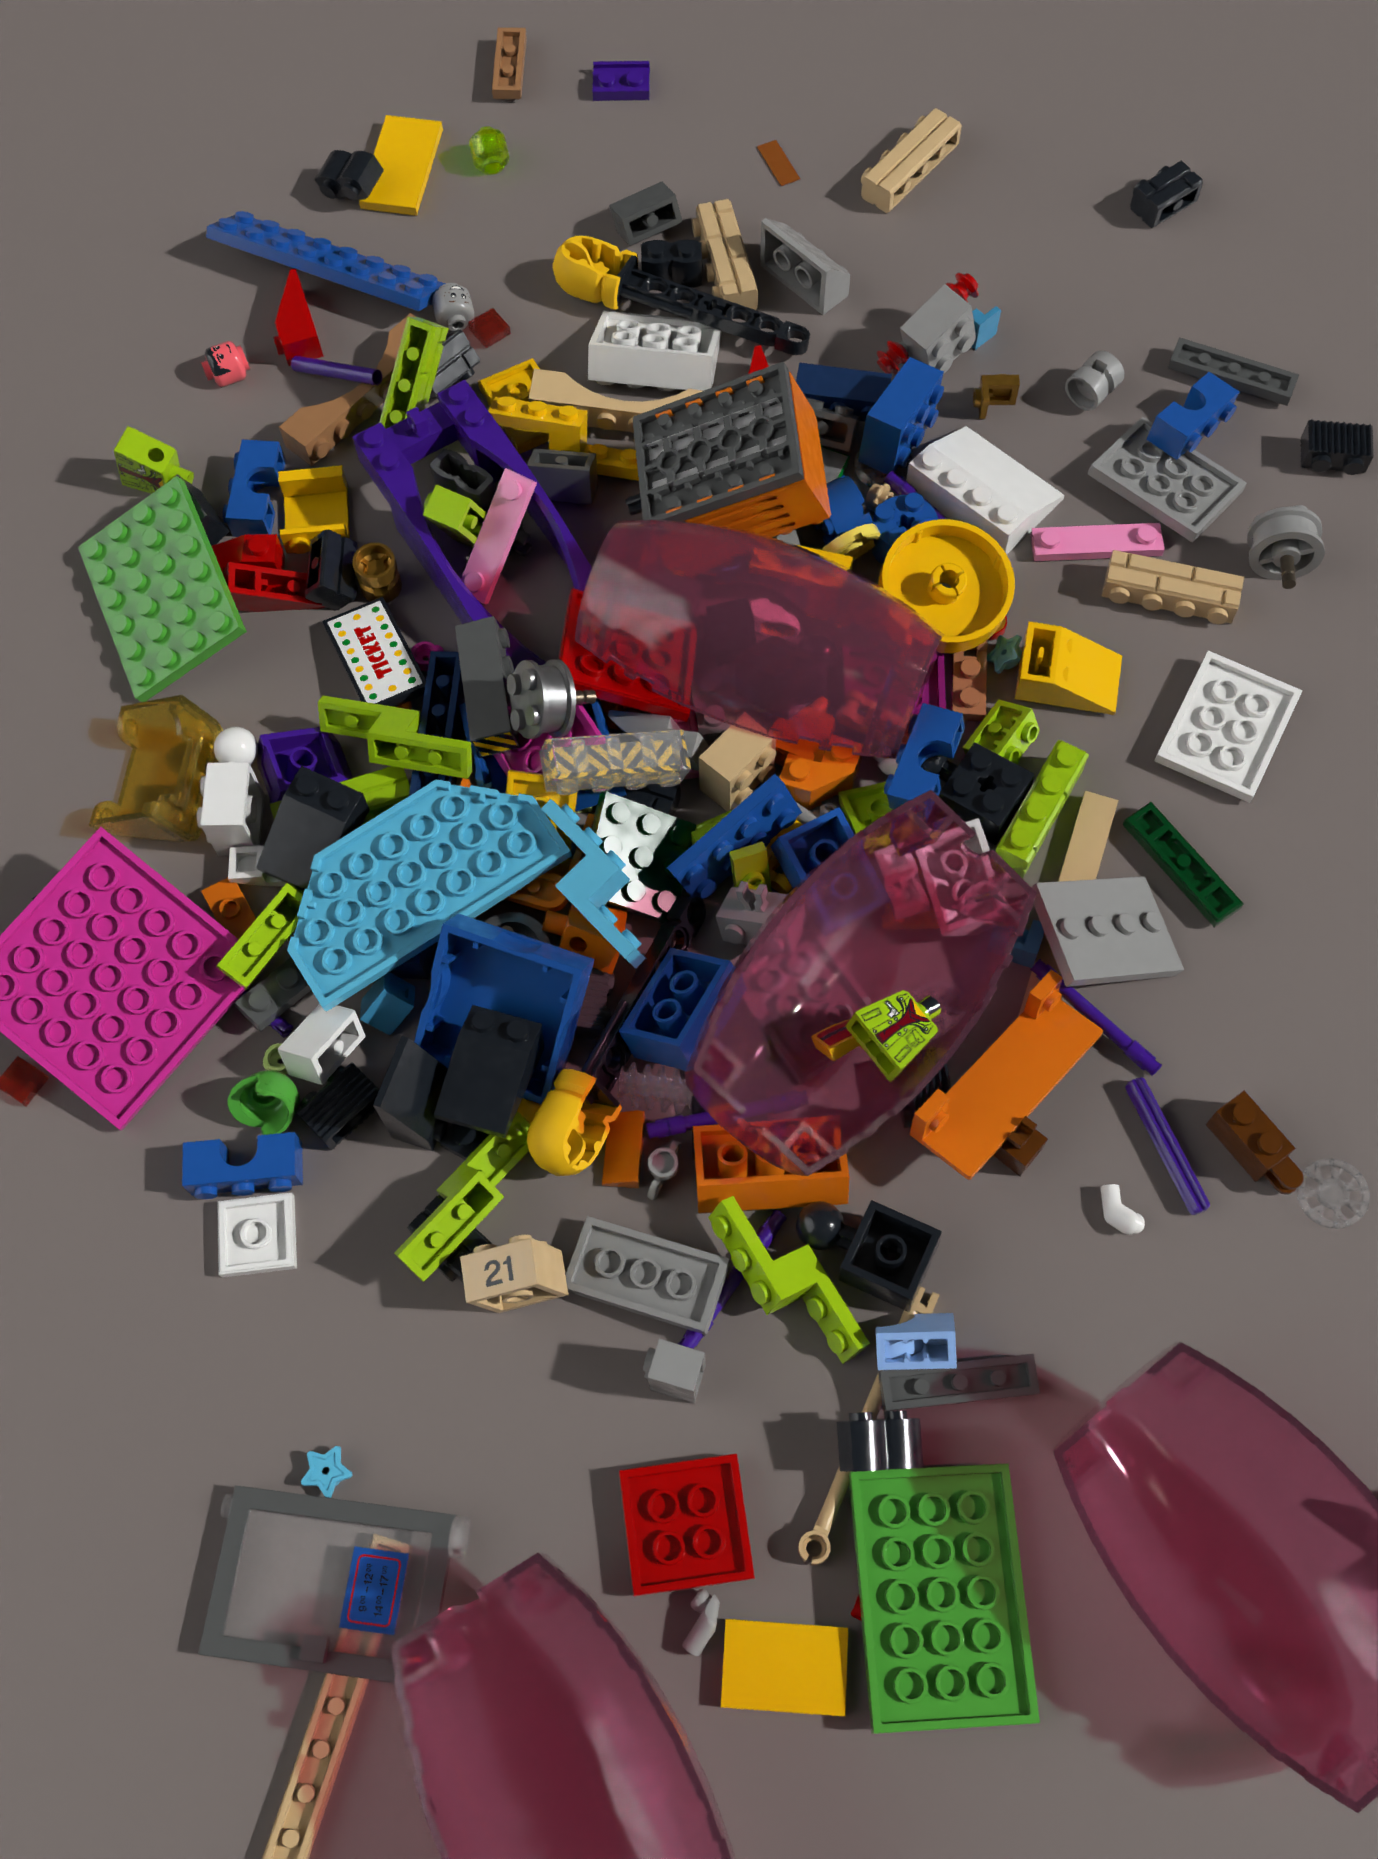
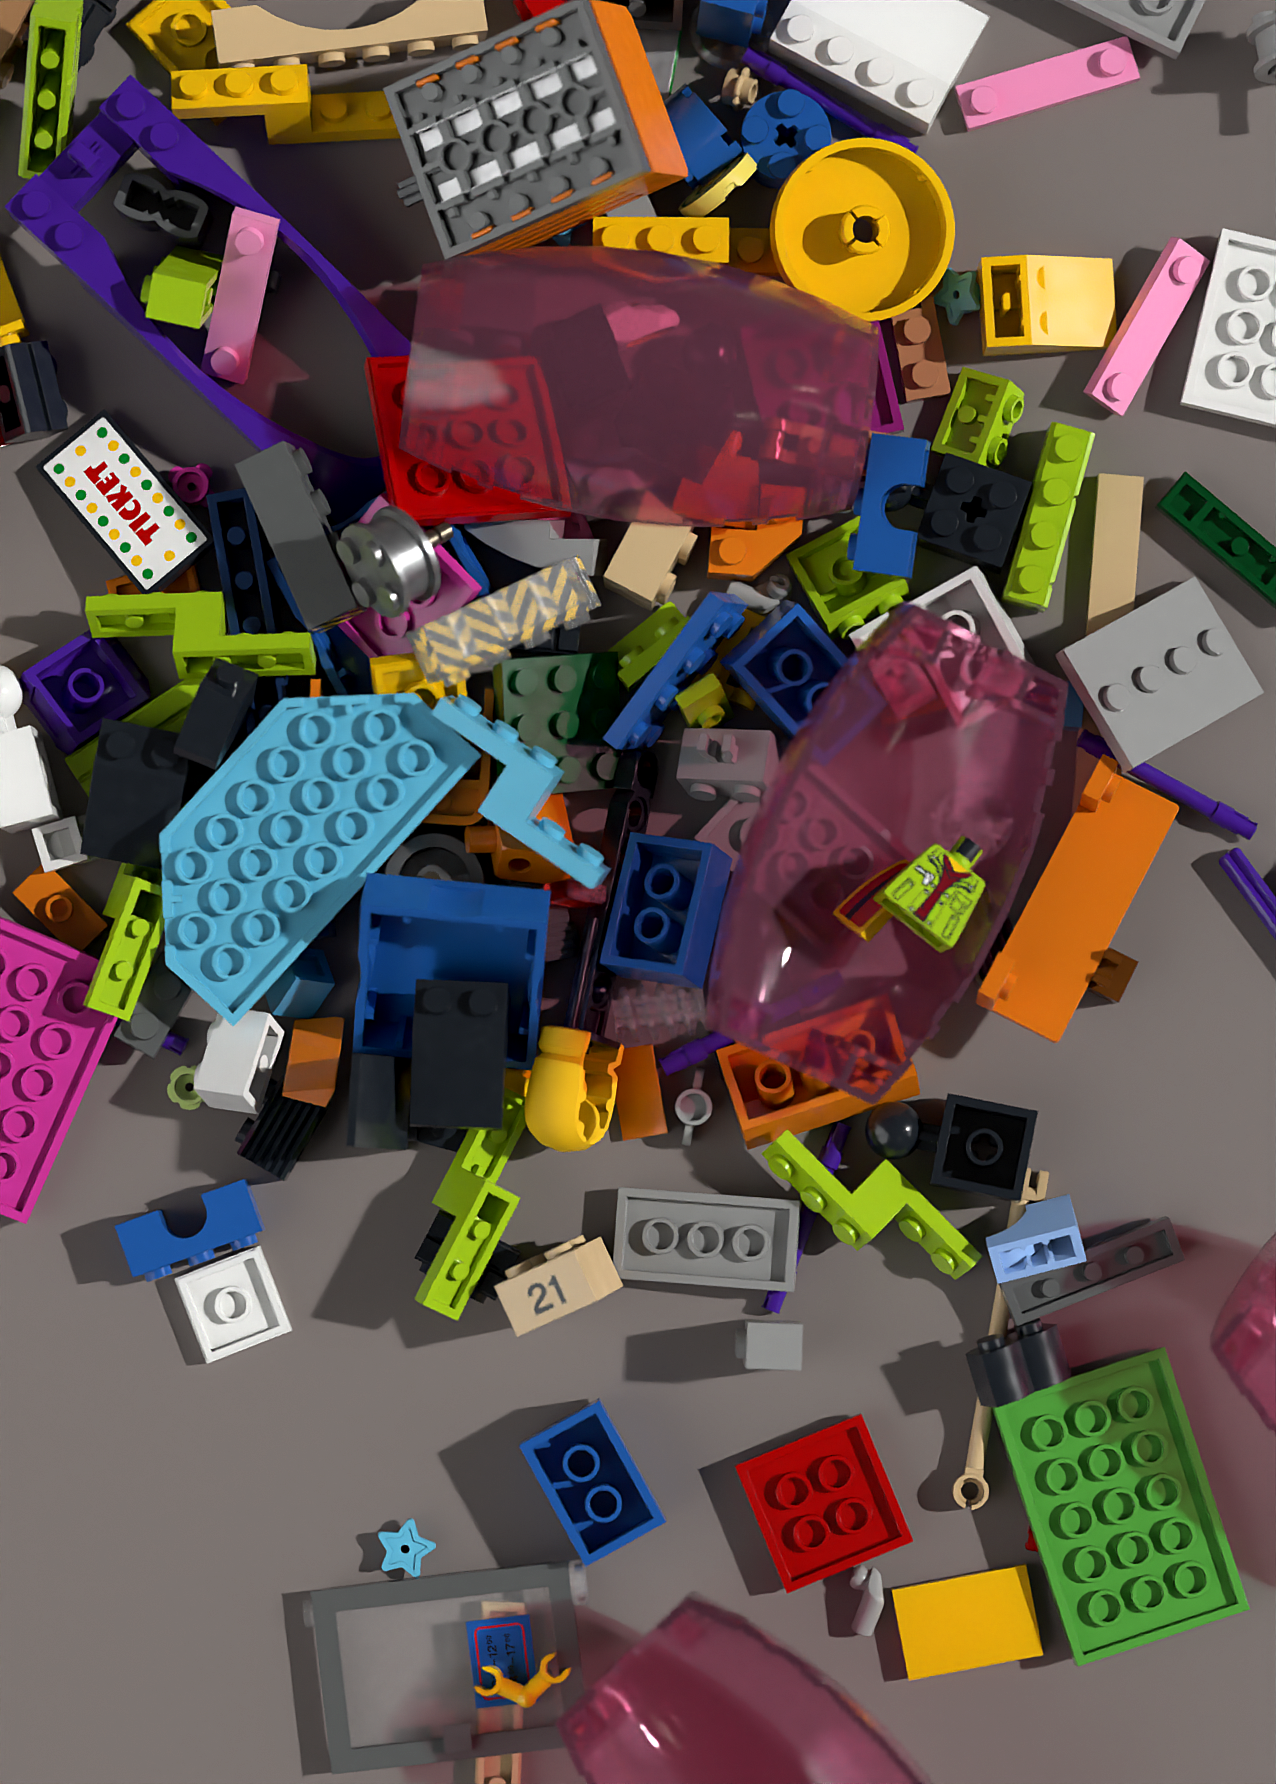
camera: 20 degrees left, 20 degrees up
(265, 1101) = (195, 1144): bright green helmet -> none
(374, 1058) = (313, 1059): none -> orange slope
(377, 572) = (88, 380): pearl gold wheel -> none
(385, 779) = (217, 713): none -> black slope
(386, 1623) = (523, 1695): none -> yellow arm
(495, 1451) = (592, 1482): none -> blue brick
(565, 475) = (297, 165): dark grey brick -> none
(614, 978) = (575, 894): none -> clear red tile
(1117, 1214) = (1237, 1025): white arm -> none
(1139, 703) = (1146, 326): none -> bright pink plate
(1172, 587) = (1160, 139): tan brick -> none

